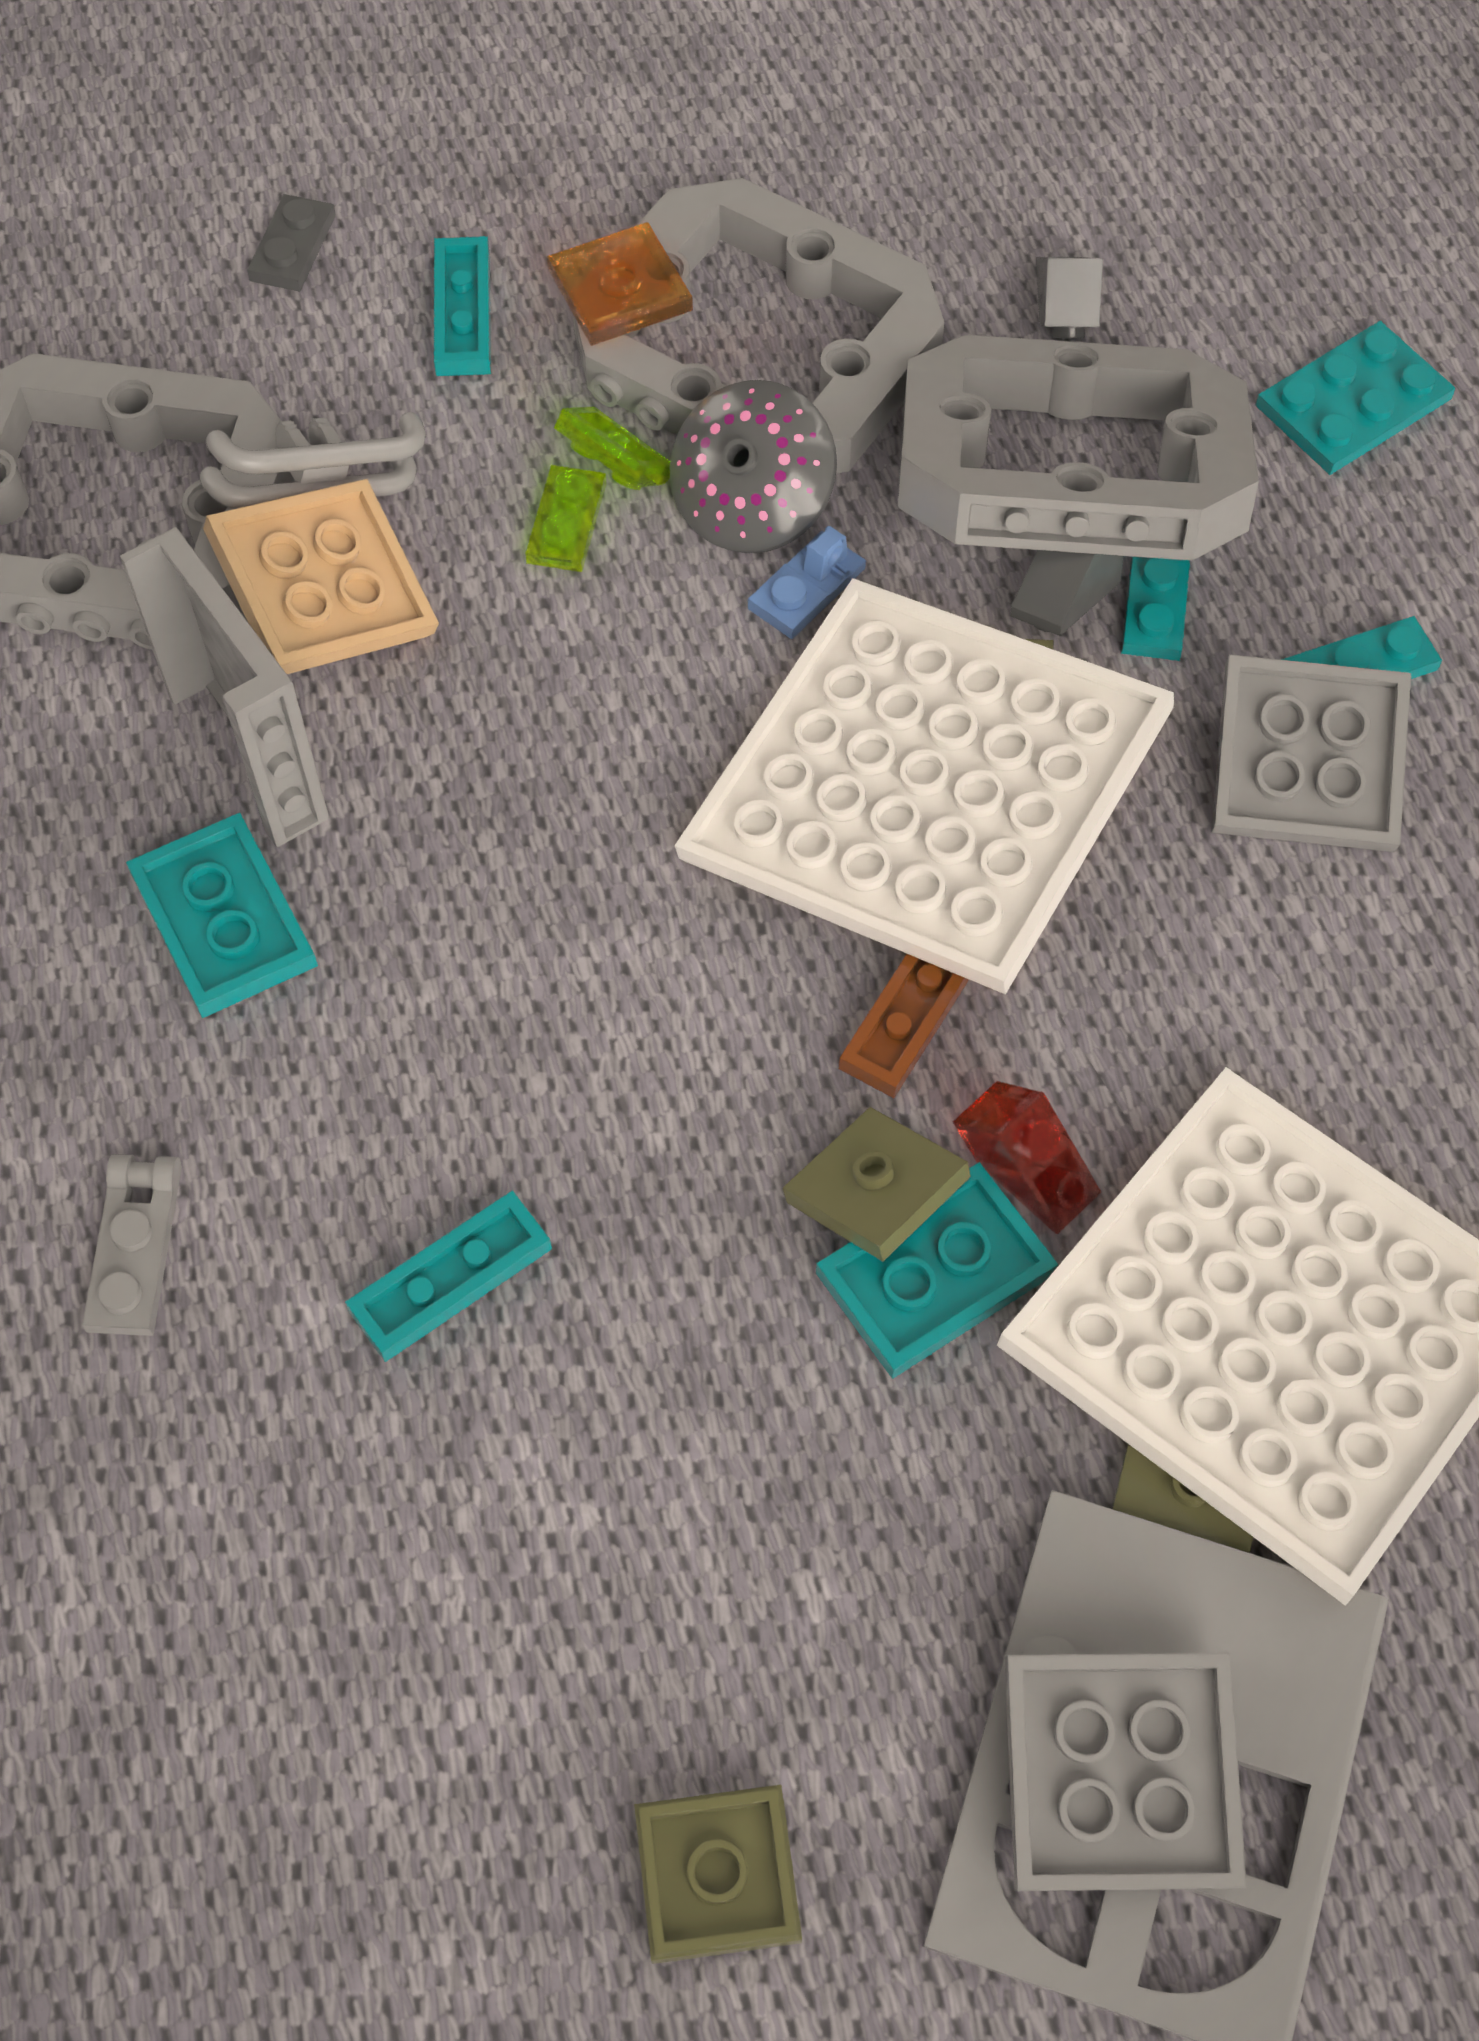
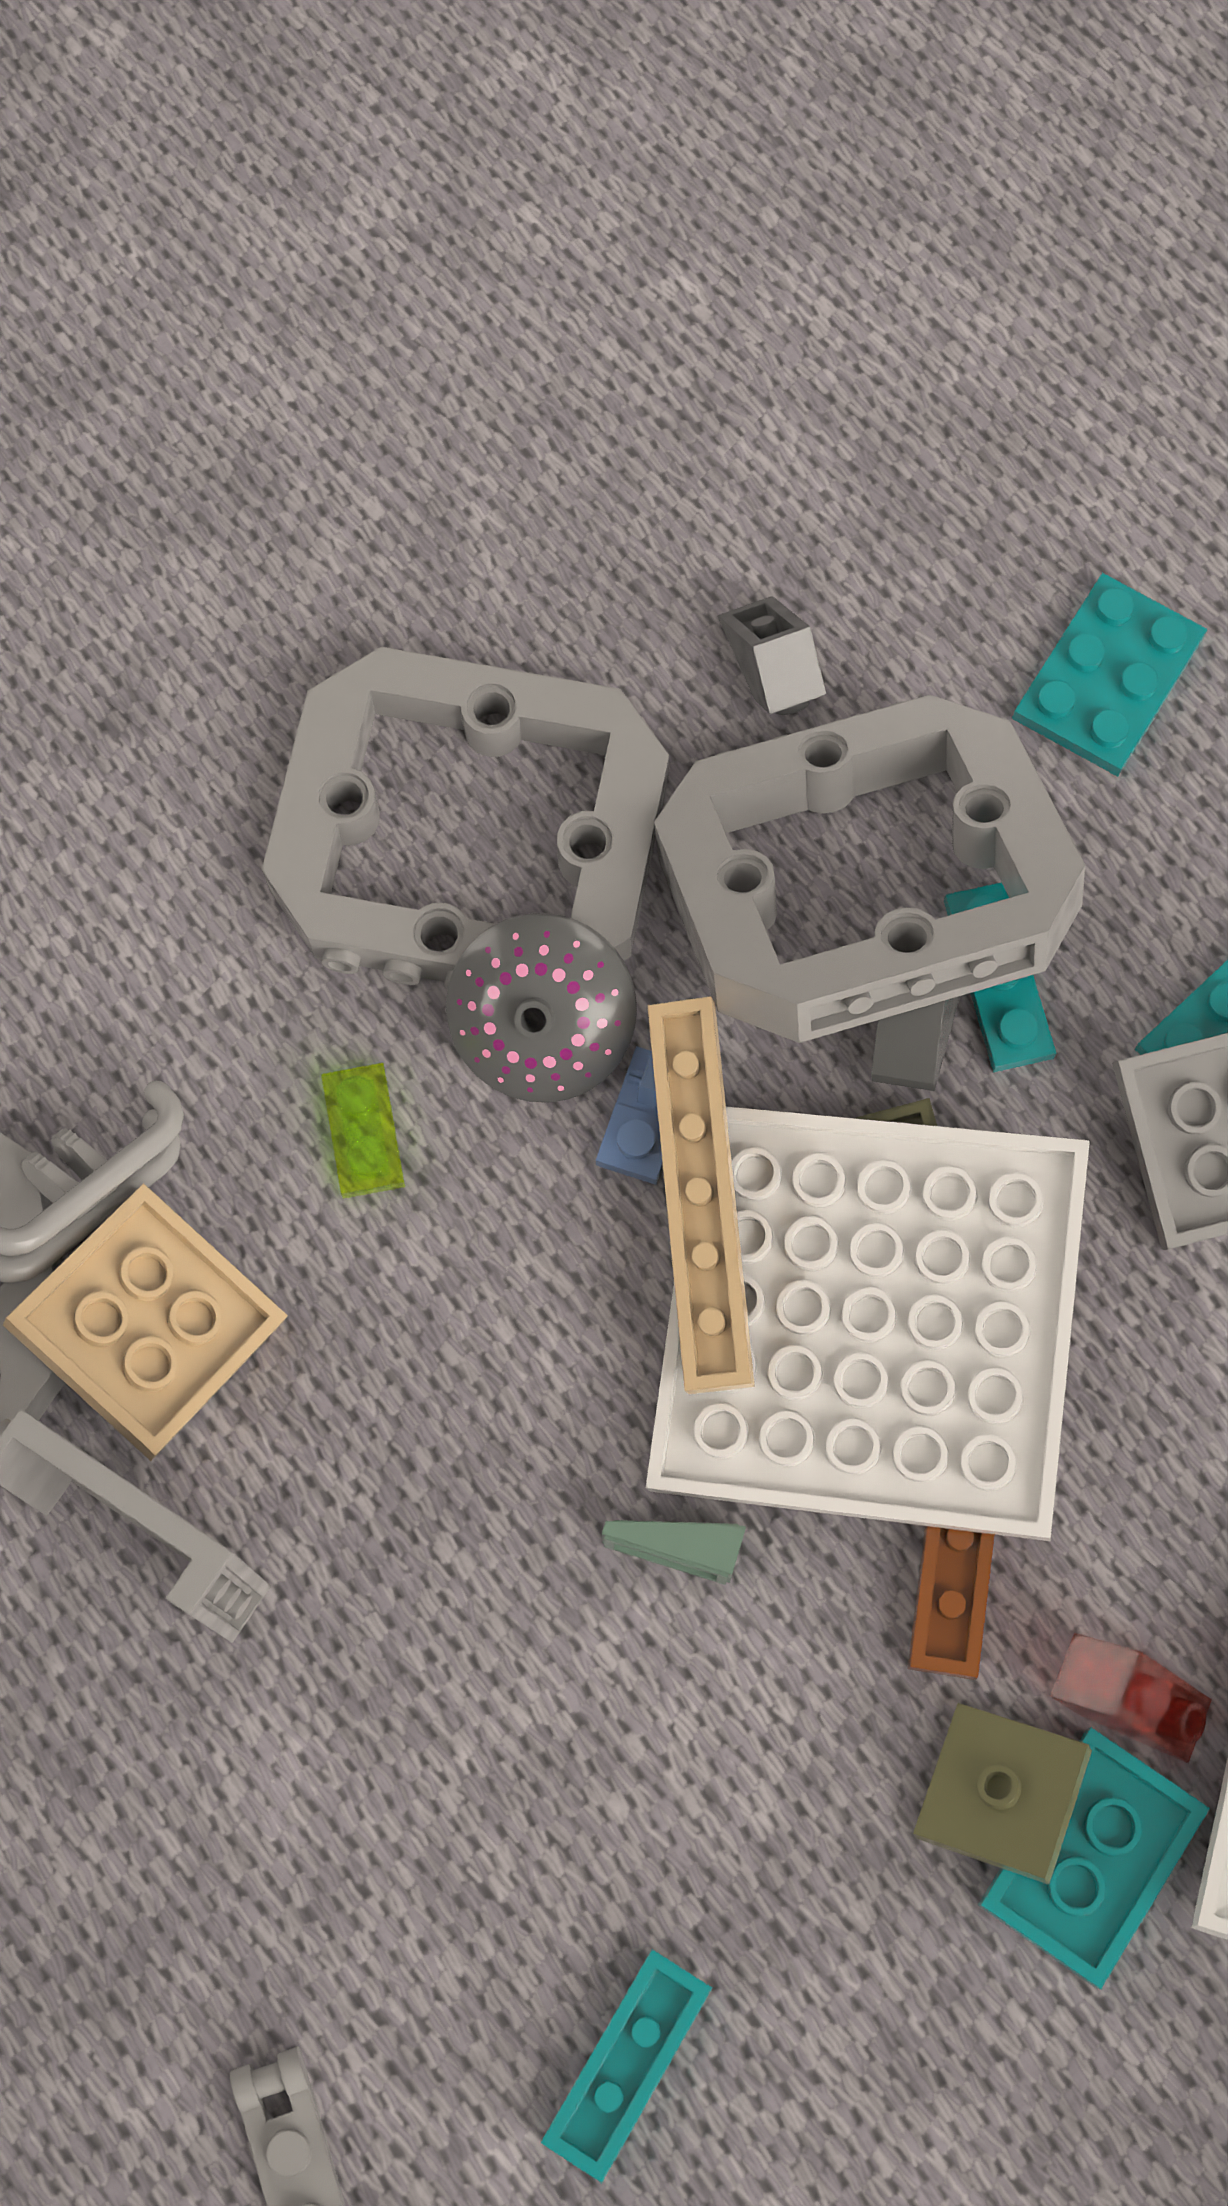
camera: 20 degrees left, 10 degrees up
(221, 914) = (214, 1752): teal plate -> none
(462, 306) = (139, 909): teal plate -> none
(603, 439) = (379, 1028): clear neon green plate -> none
(619, 283) = (310, 837): clear orange plate -> none
(688, 900) = (690, 1547): none -> sand green slope
(818, 635) = (700, 1197): none -> tan plate

